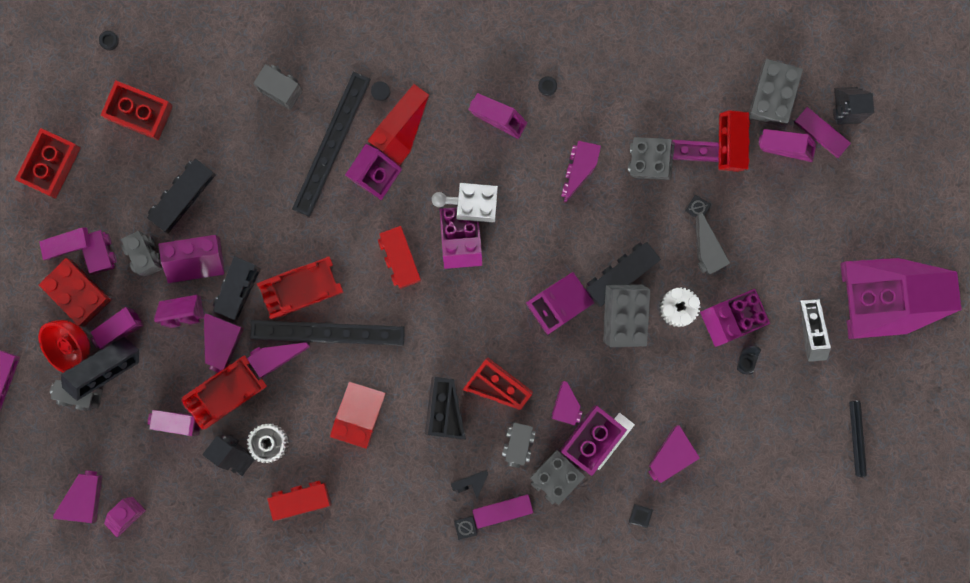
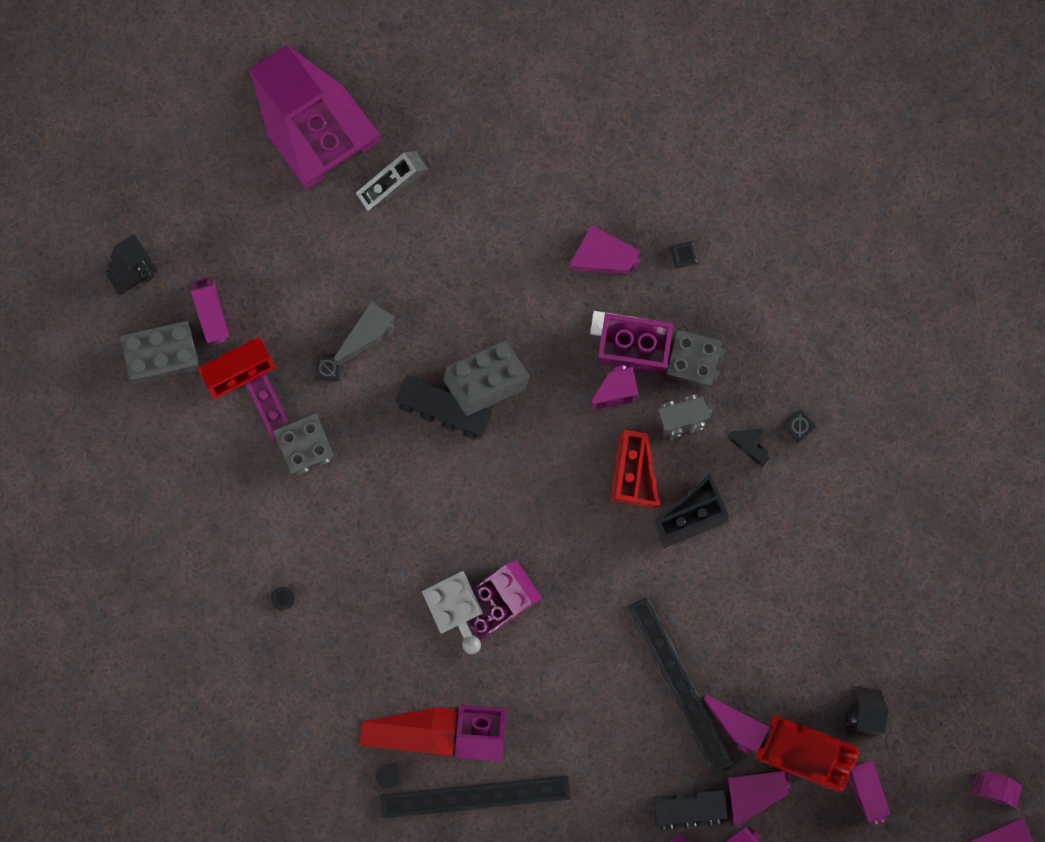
camera: 120 degrees left, 5 degrees down
(258, 447) = (821, 672): white brick -> none
(299, 288) = (650, 741): red piece -> none
(299, 500) = (872, 613): red brick -> none
(357, 415) = (748, 602): slope -> none
(399, 257) = (557, 652): red brick -> none
(498, 115) = (345, 633): magenta slope -> none
(502, 511) = (760, 397): magenta tile -> none
(559, 303) = (511, 456): magenta slope -> none
(584, 162) = (351, 510): magenta slope -> none
(683, 317) = (448, 317): white brick -> none
(735, 317) = (424, 267): magenta slope -> none
(748, 359) = (460, 231): black hair -> none
(822, 132) = (175, 282): magenta tile -> none
(858, 438) = (479, 79): black axle -> none

